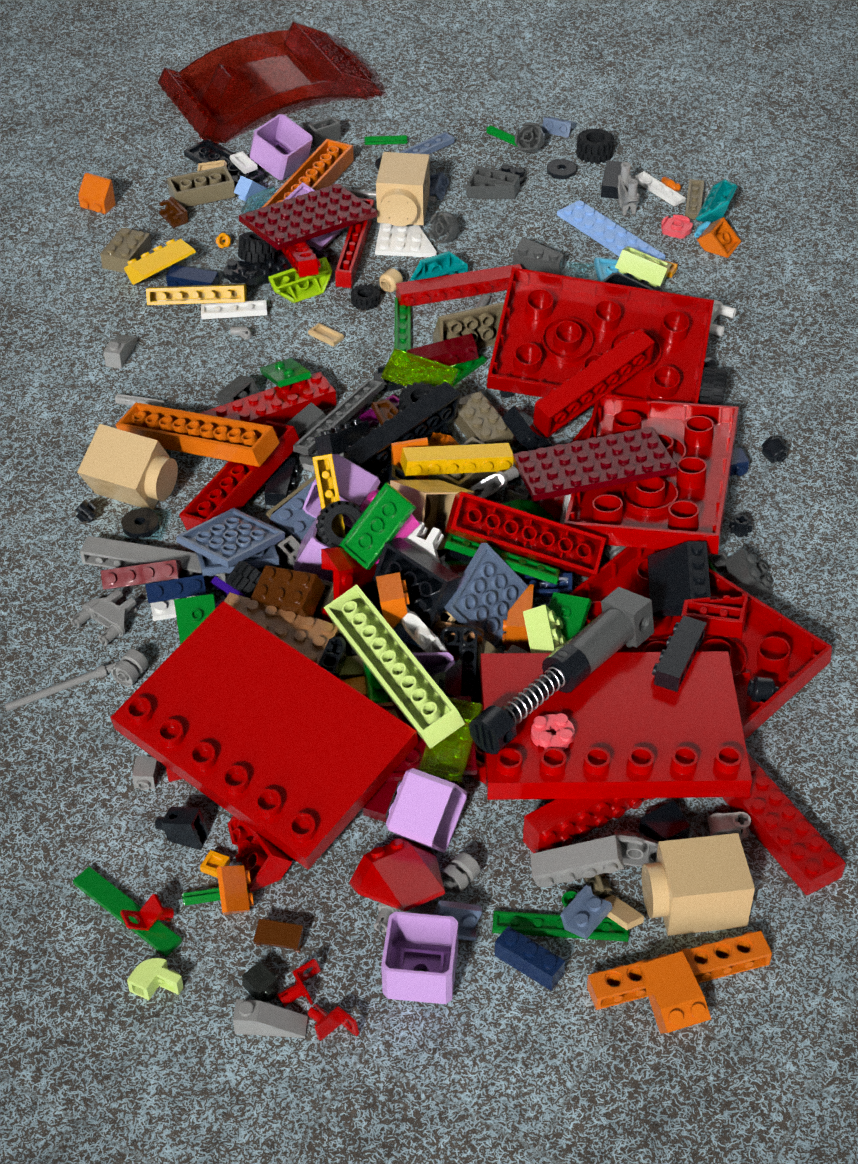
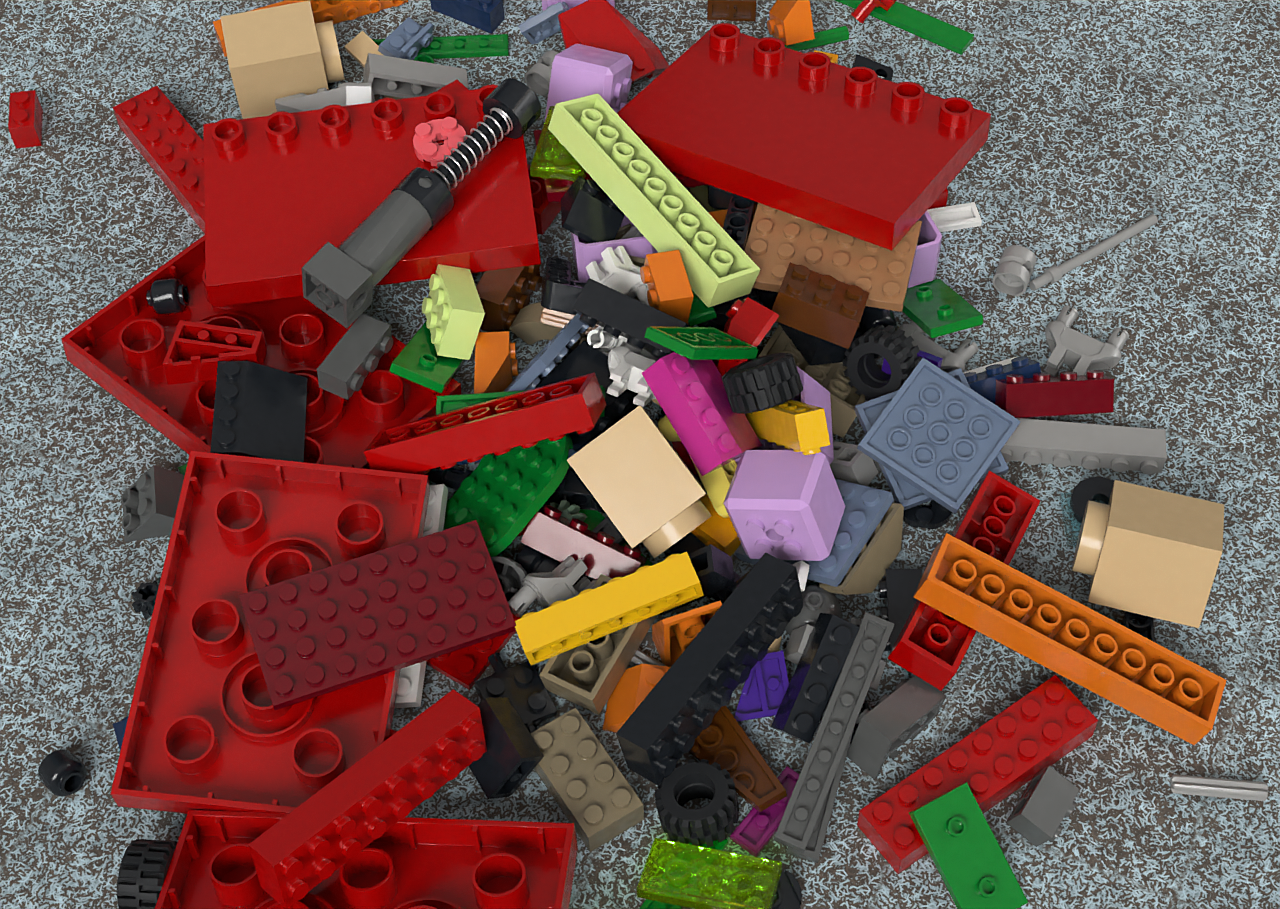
camera: 175 degrees right, 10 degrees up
(679, 653) = (270, 257): black brick -> none

